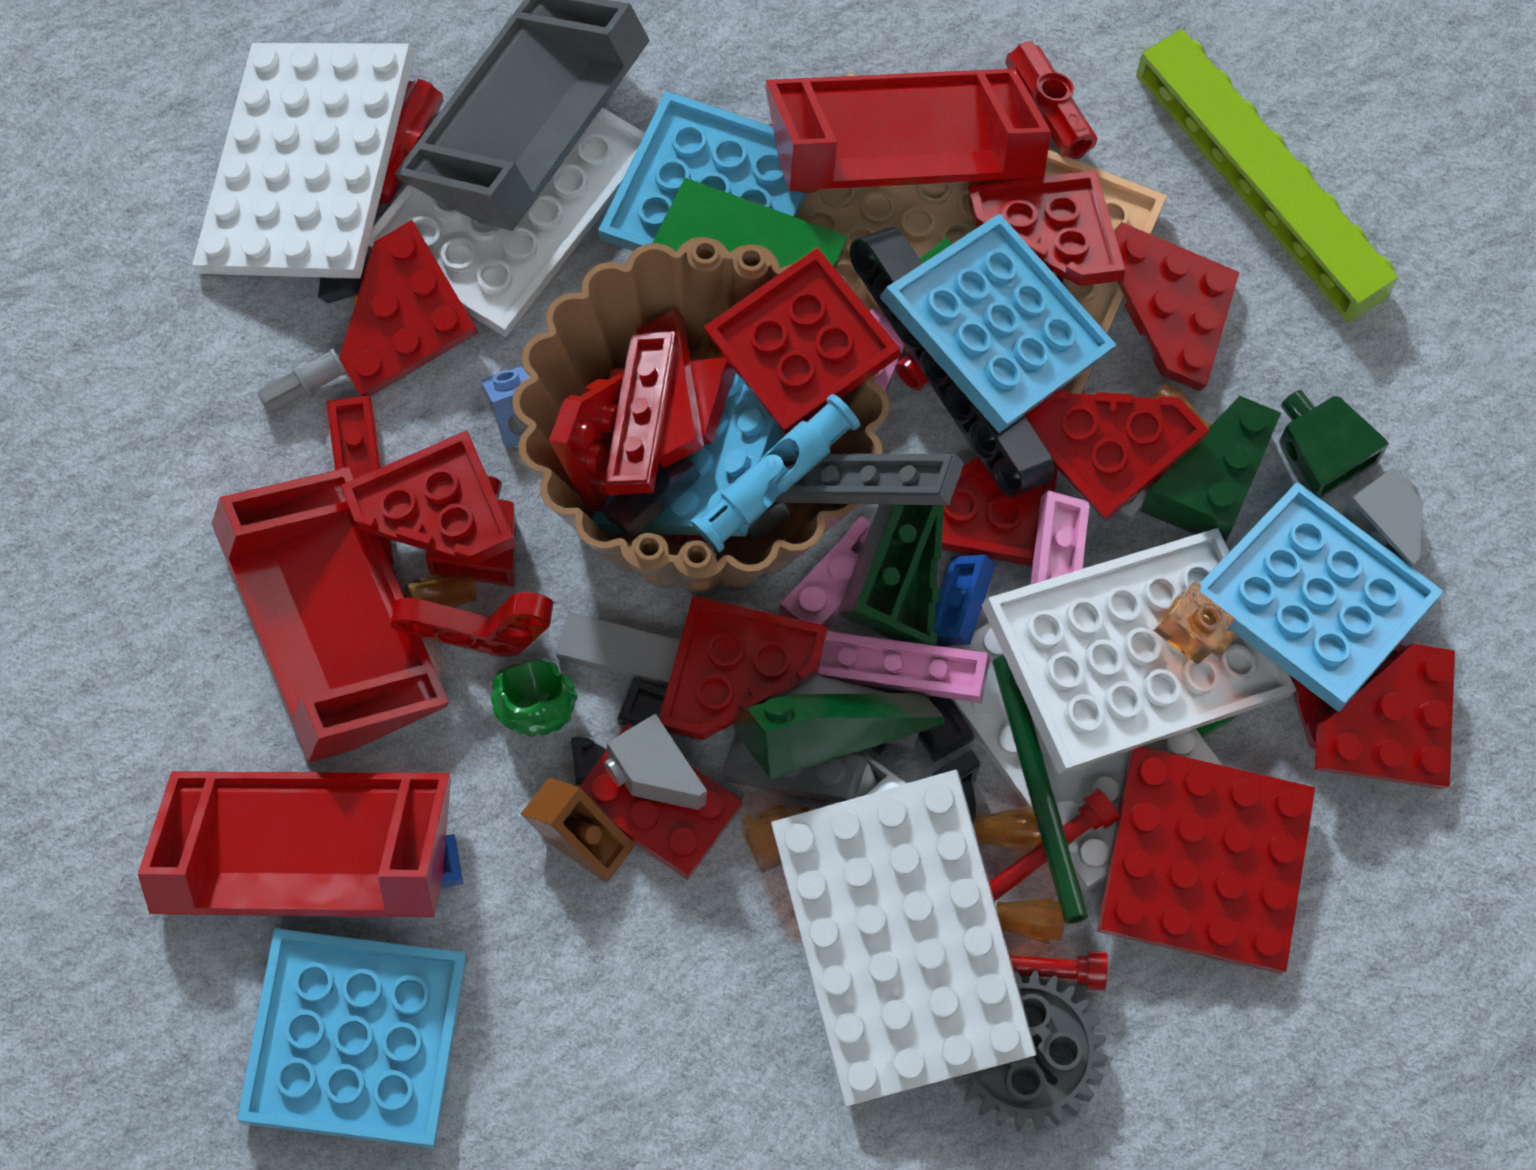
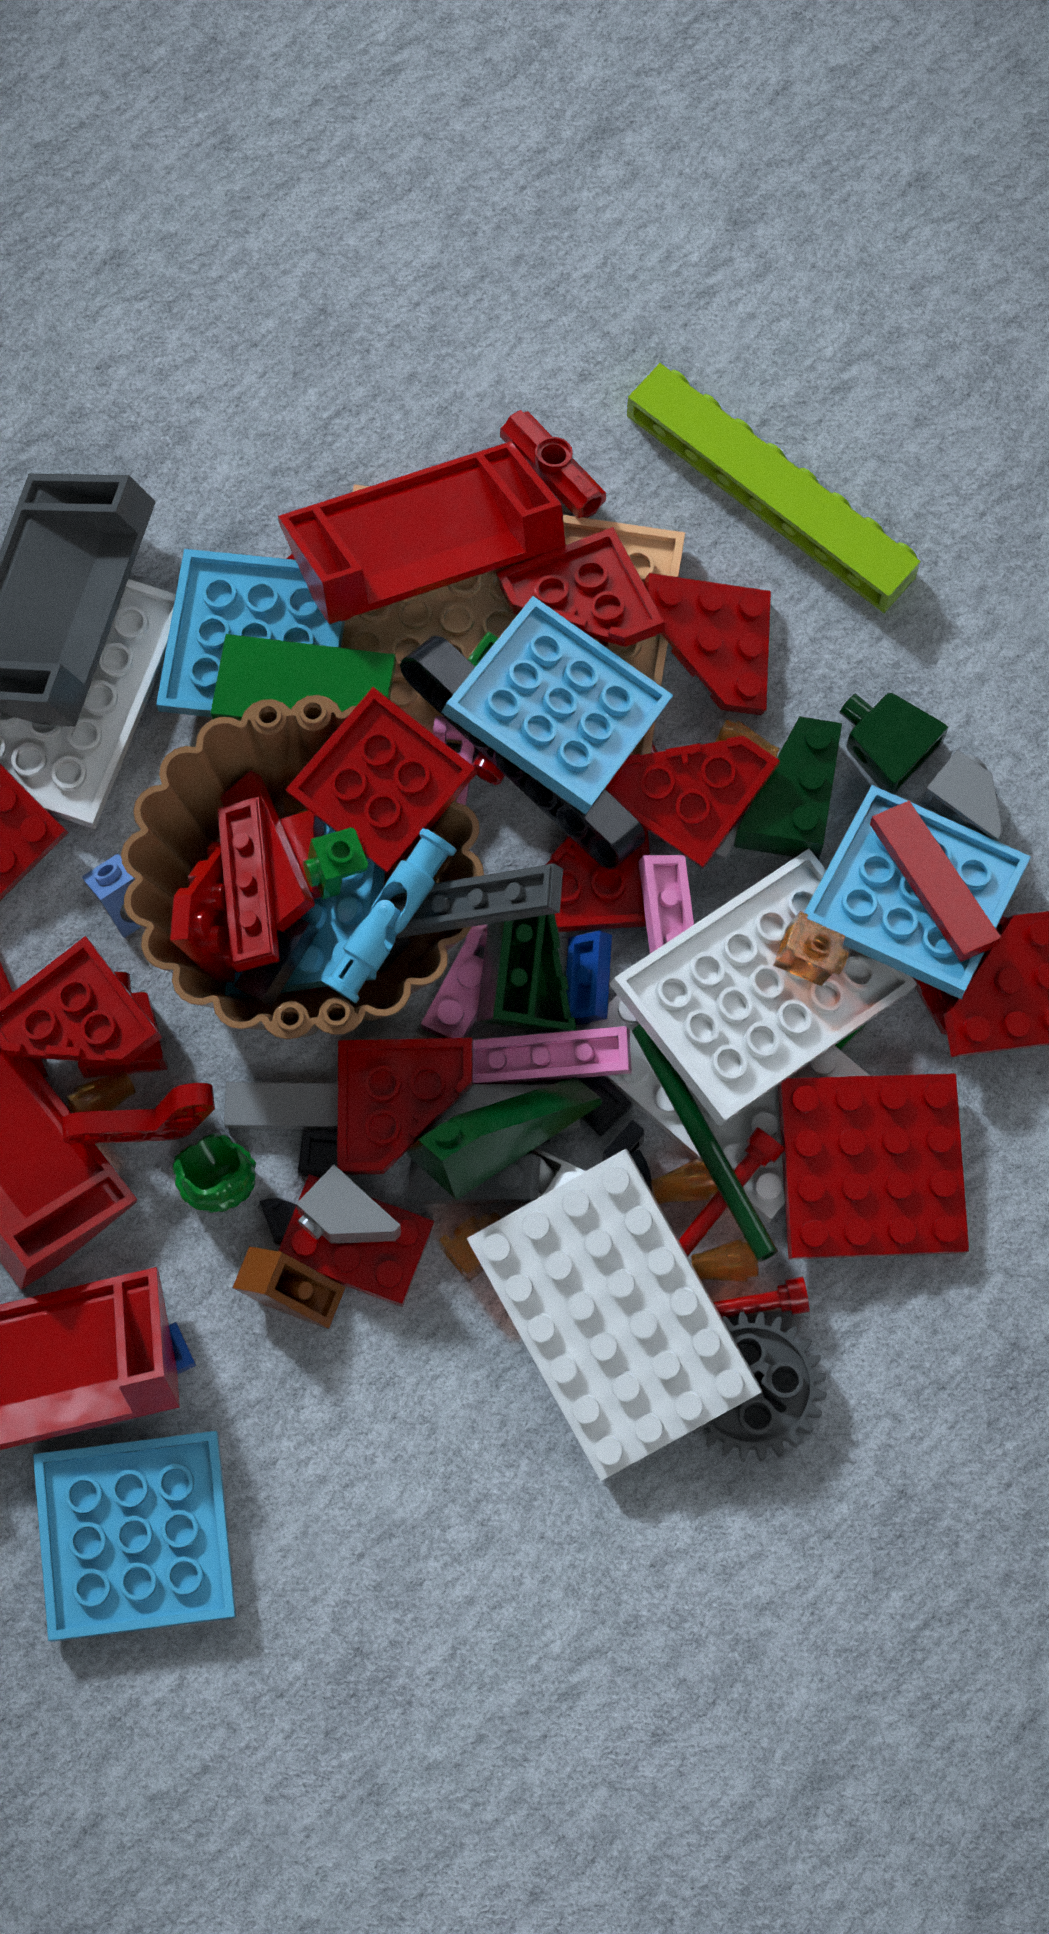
camera: 10 degrees left, 5 degrees up
(733, 403) = (332, 859): none -> green bracket
(1340, 589) = (935, 881): none -> red tile

